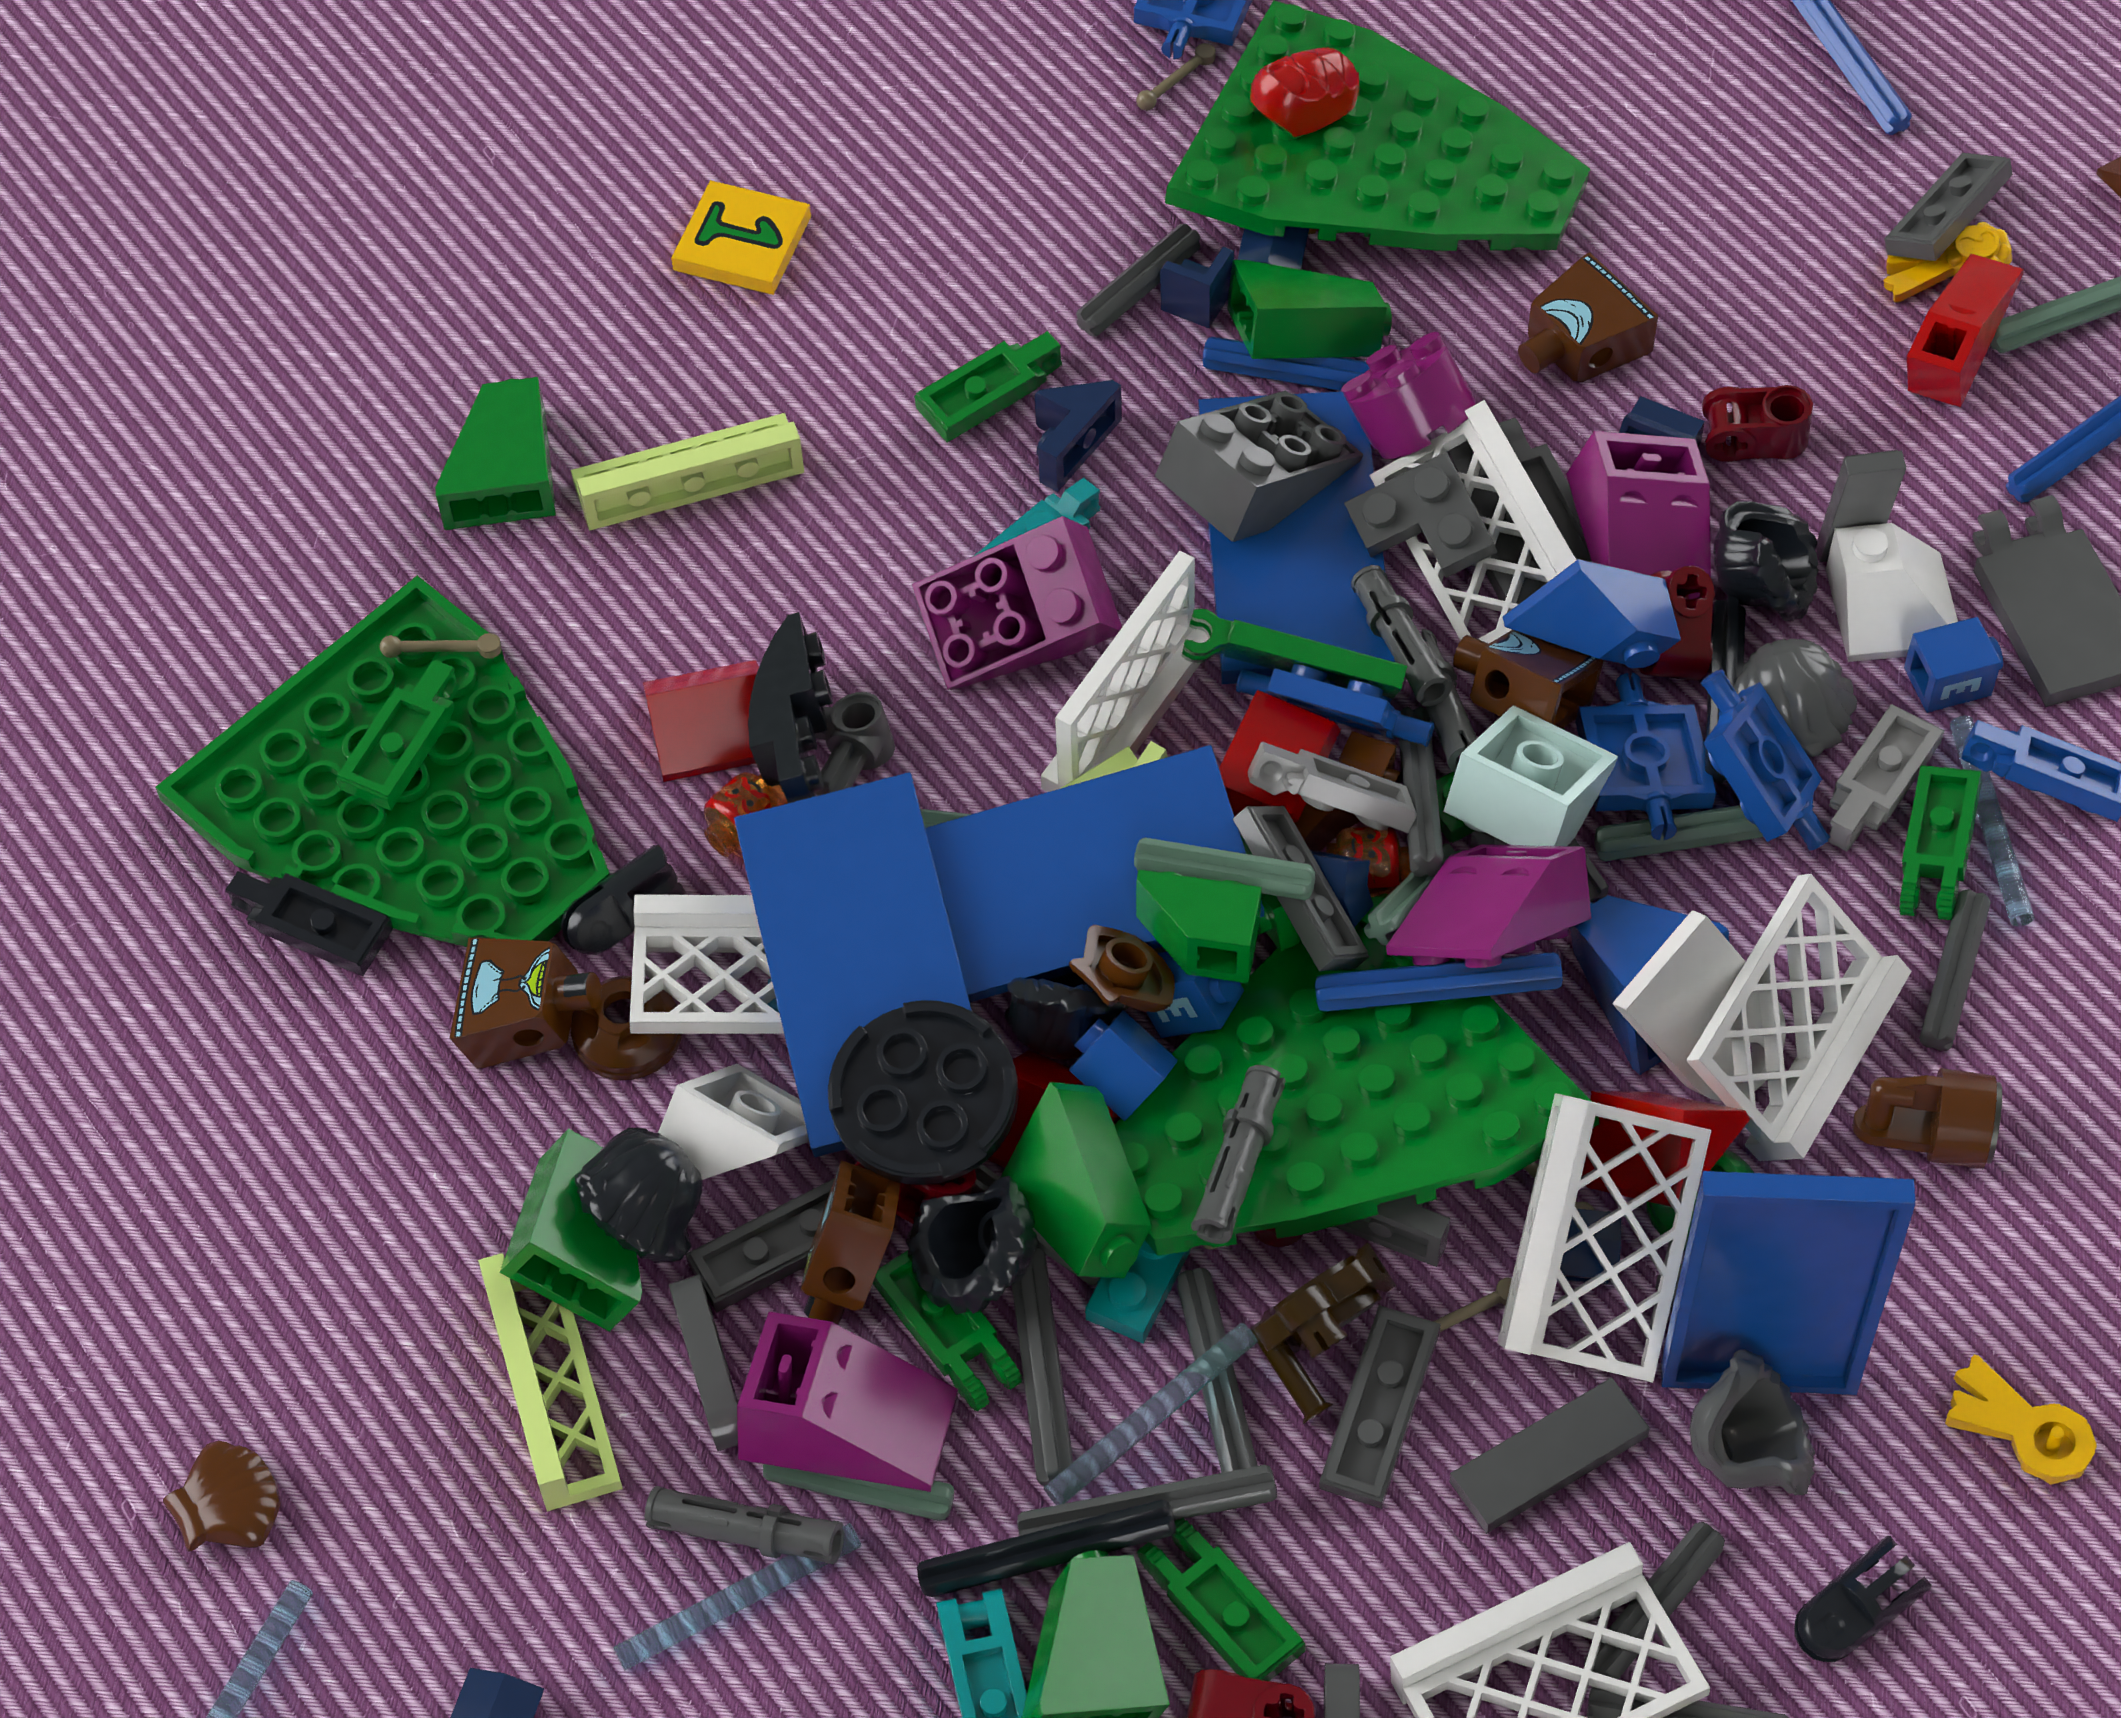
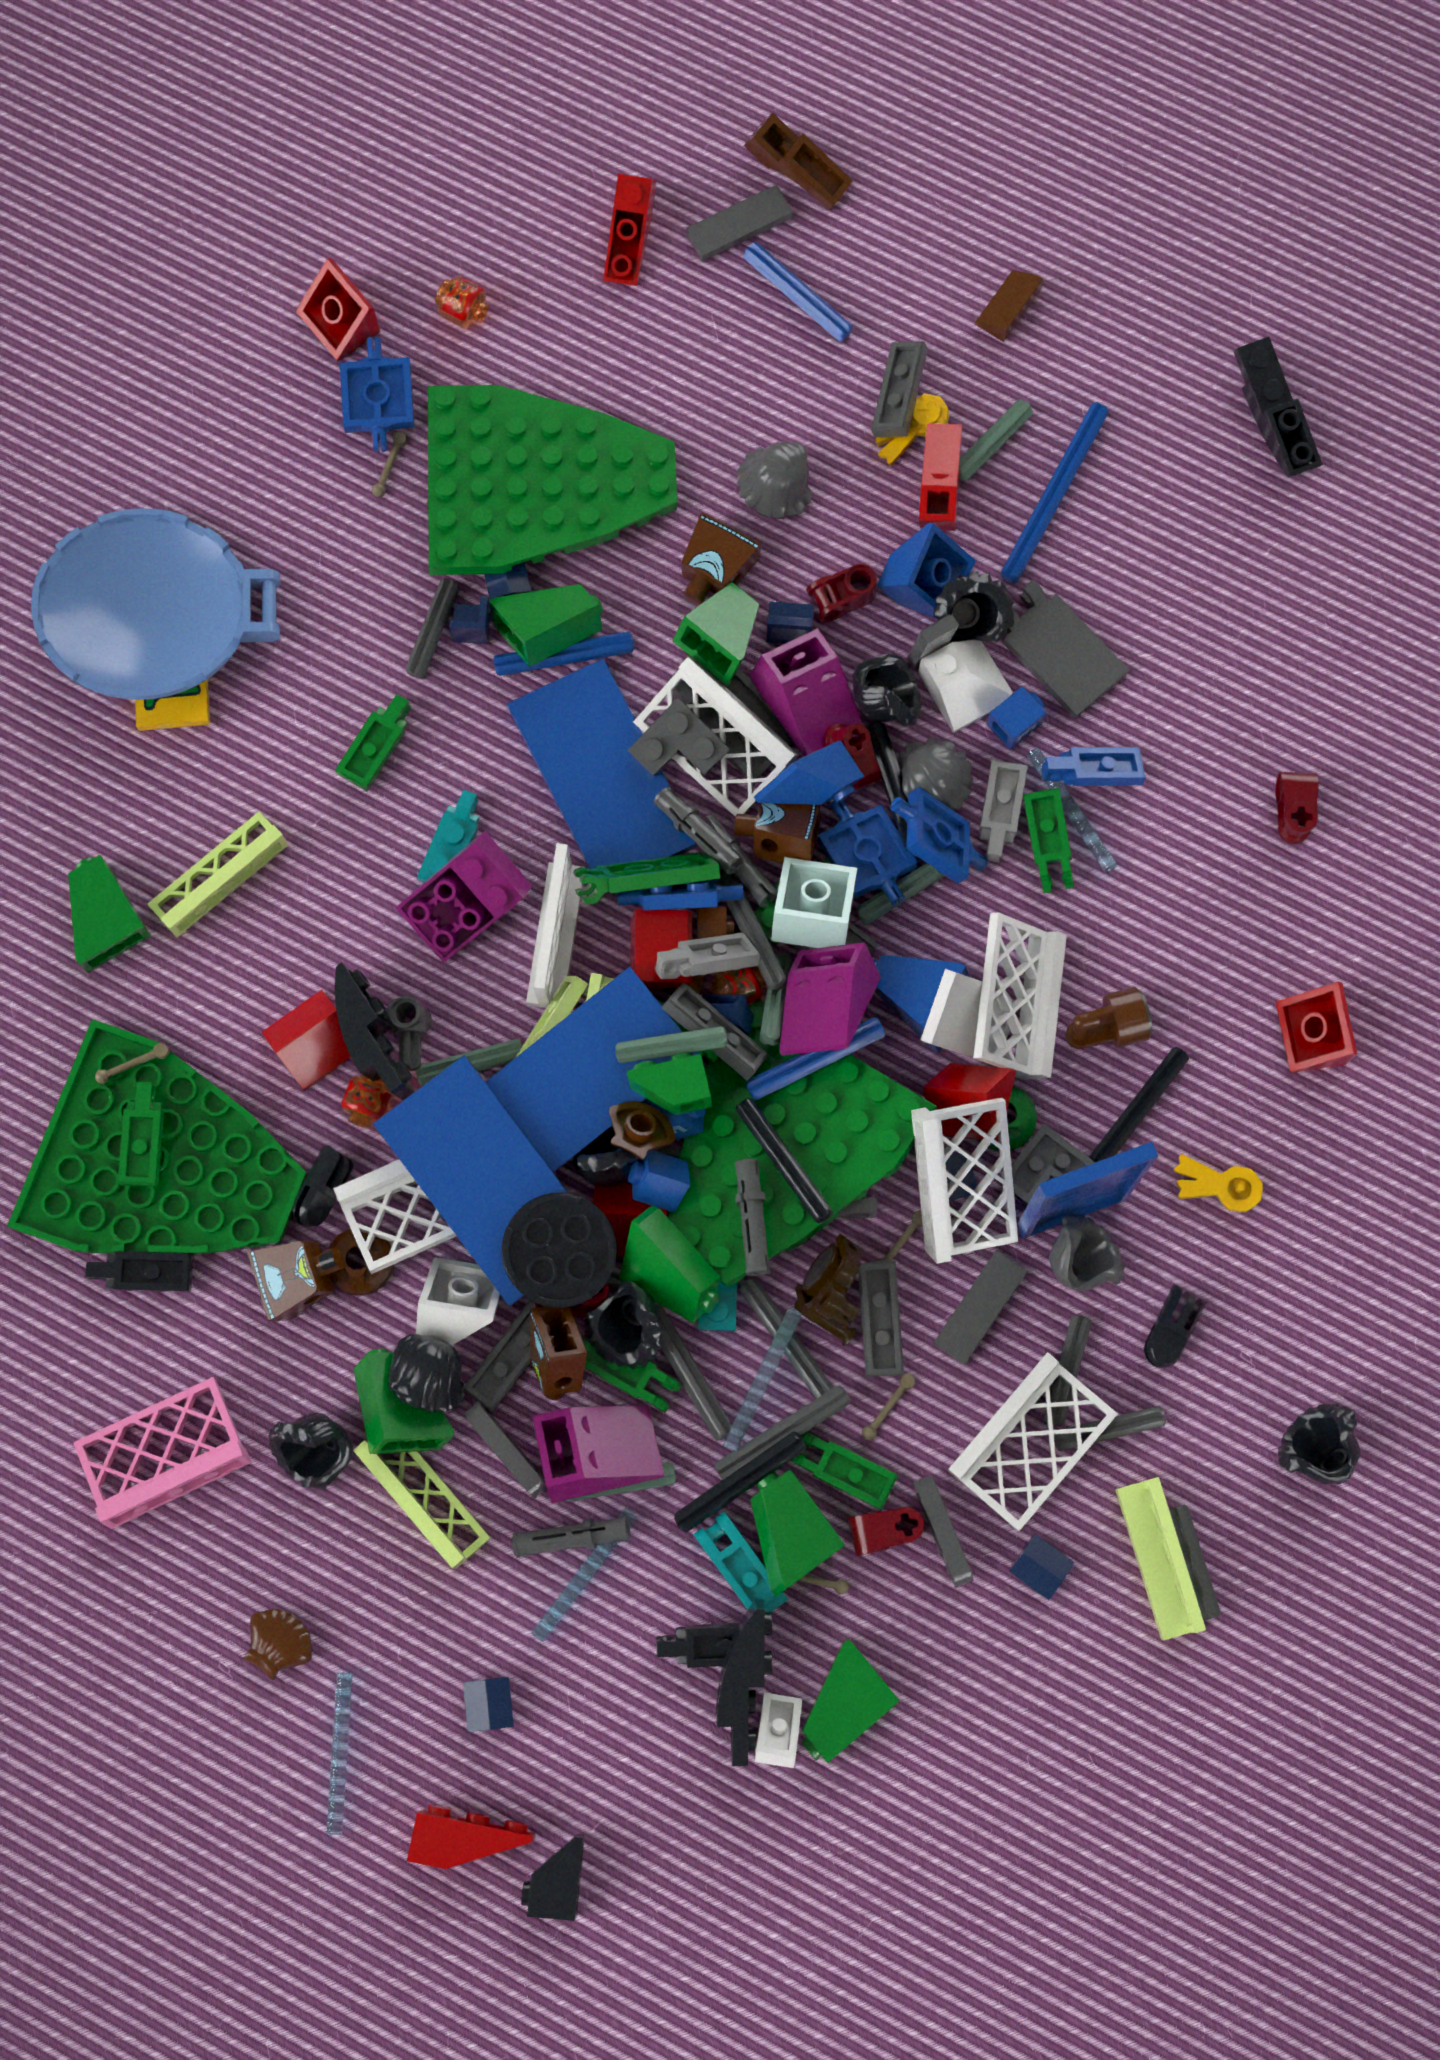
camera: 25 degrees left, 20 degrees up
(199, 1208) = (174, 1482): none -> bright pink fence
(416, 1237) = (311, 1449): none -> black hair
(765, 116) = (147, 604): none -> medium blue dish
(1074, 426) = (443, 747): dark blue slope -> none
(1254, 462) = (563, 740): dark grey slope -> none
(1306, 90) = (484, 461): red piece -> none
(1325, 1098) = (784, 1160): none -> black axle
(1382, 1521) = (906, 1382): none -> dark tan hinge
(1409, 396) = (637, 662): magenta brick -> none
(1546, 395) = (719, 631): none -> slope
(1718, 257) = (776, 480): none -> dark grey hair
(1898, 414) = (923, 568): none -> blue slope
(1949, 493) = (978, 606): none -> black hair
(1955, 970) = (1087, 918): dark grey axle -> none
(1964, 1248) = (1141, 1105): none -> black axle

